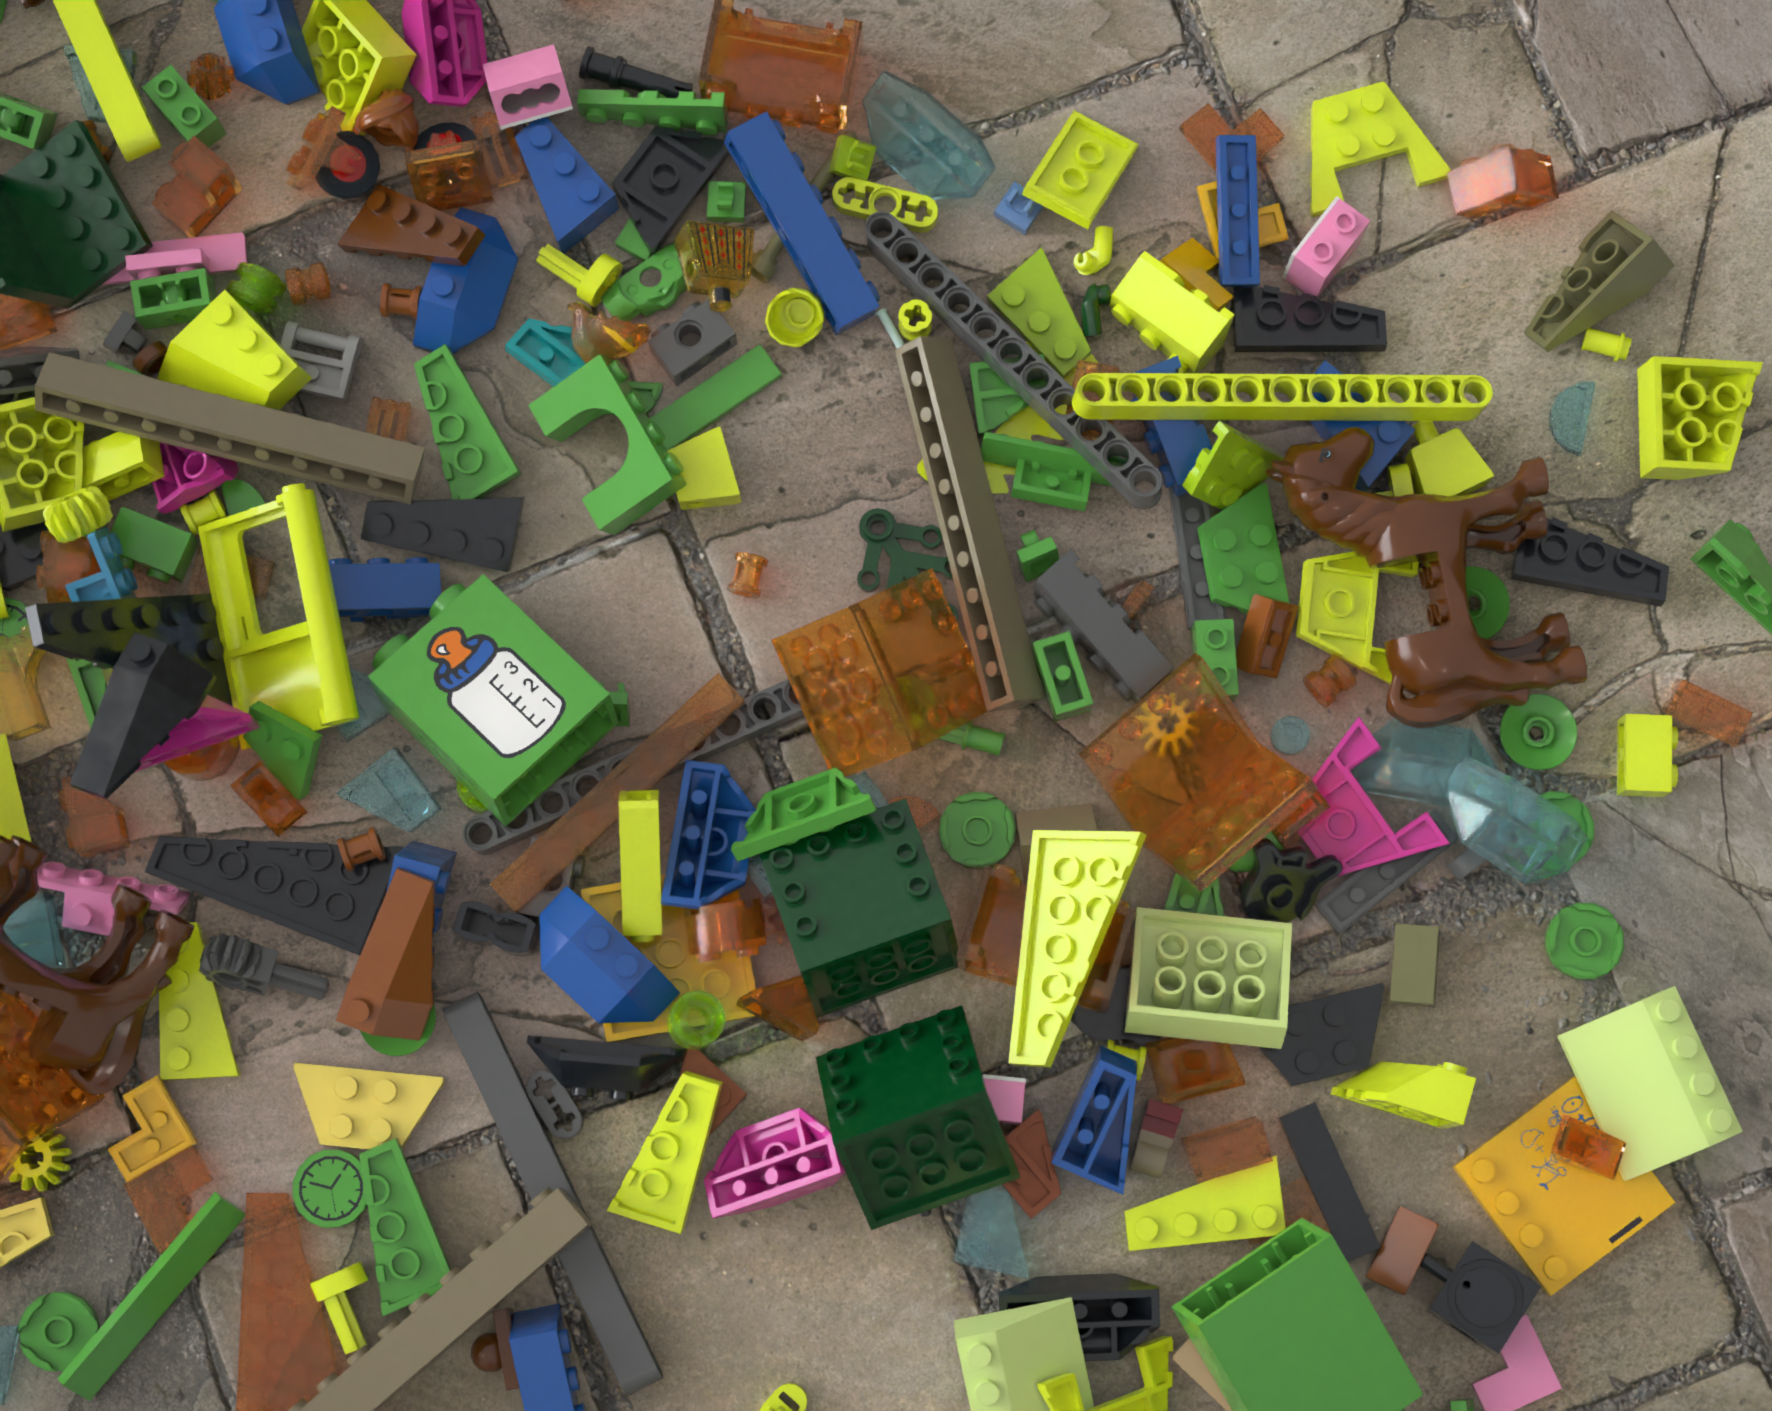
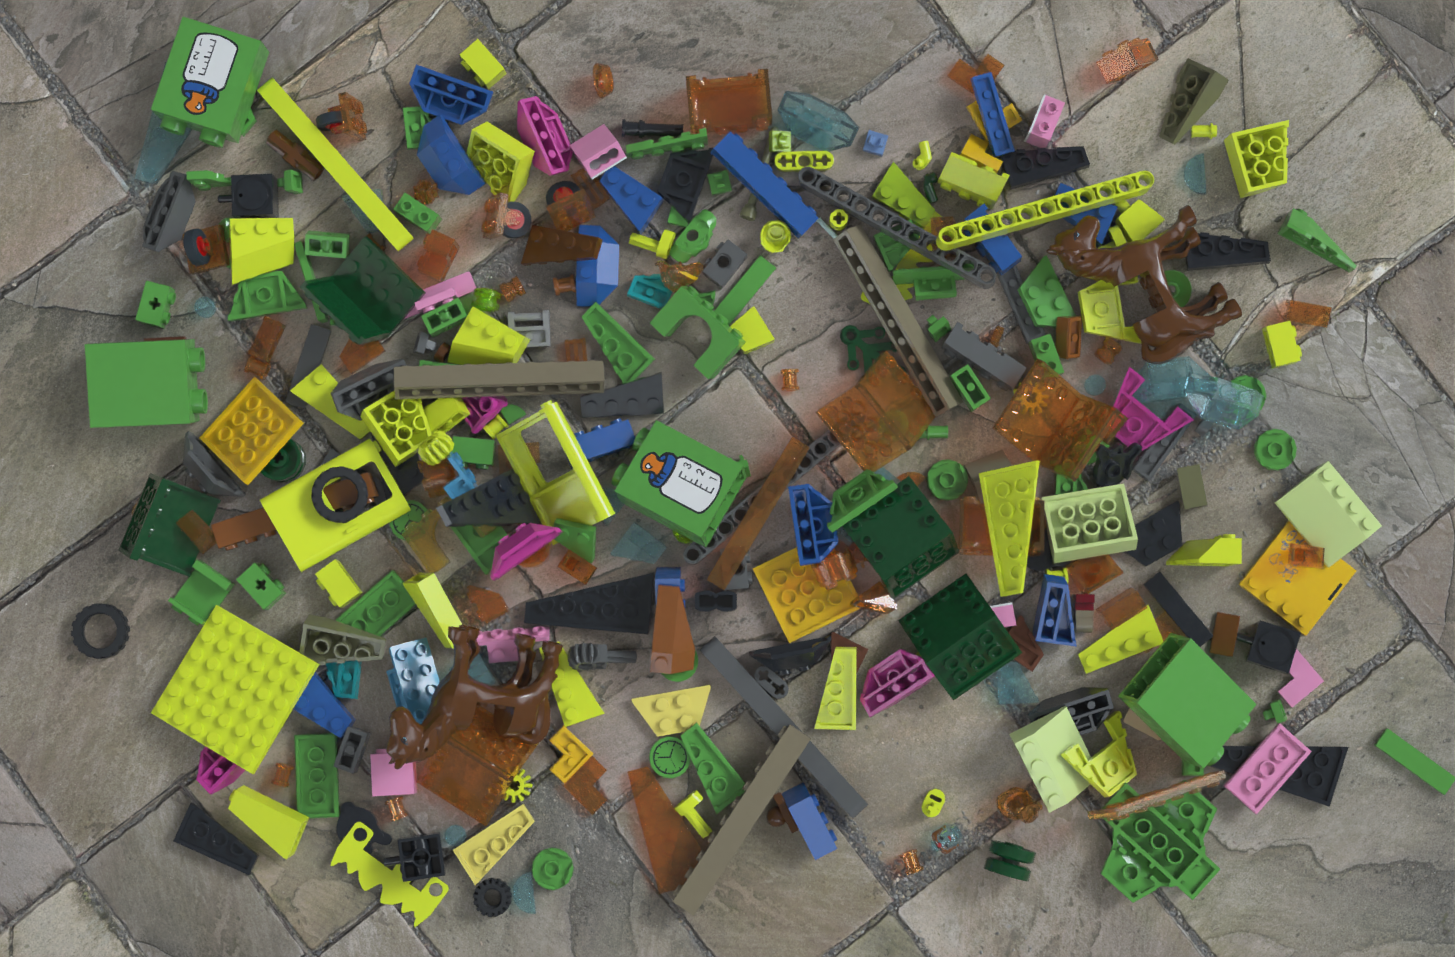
camera: 10 degrees left, 5 degrees up
(142, 703) = (506, 541): black wedge -> none
(151, 1296) = (595, 837): bright green tile -> none
(361, 848) = (634, 580): dark orange bush -> none
(390, 120) = (530, 189): dark orange hair -> none
(599, 964) = (774, 604): blue wedge -> none
(640, 864) = (782, 547): neon yellow slope -> none
(706, 1005) = (841, 615): clear neon green wheel -> none
(715, 261) = (725, 218): clear yellow torso -> none
(1080, 169) = (902, 114): neon yellow tile -> none
(1230, 468) = (1028, 254): lime wing -> none
(1362, 129) = (1043, 50): neon yellow wing -> none
(1553, 721) = (1233, 348): bright green dish -> none

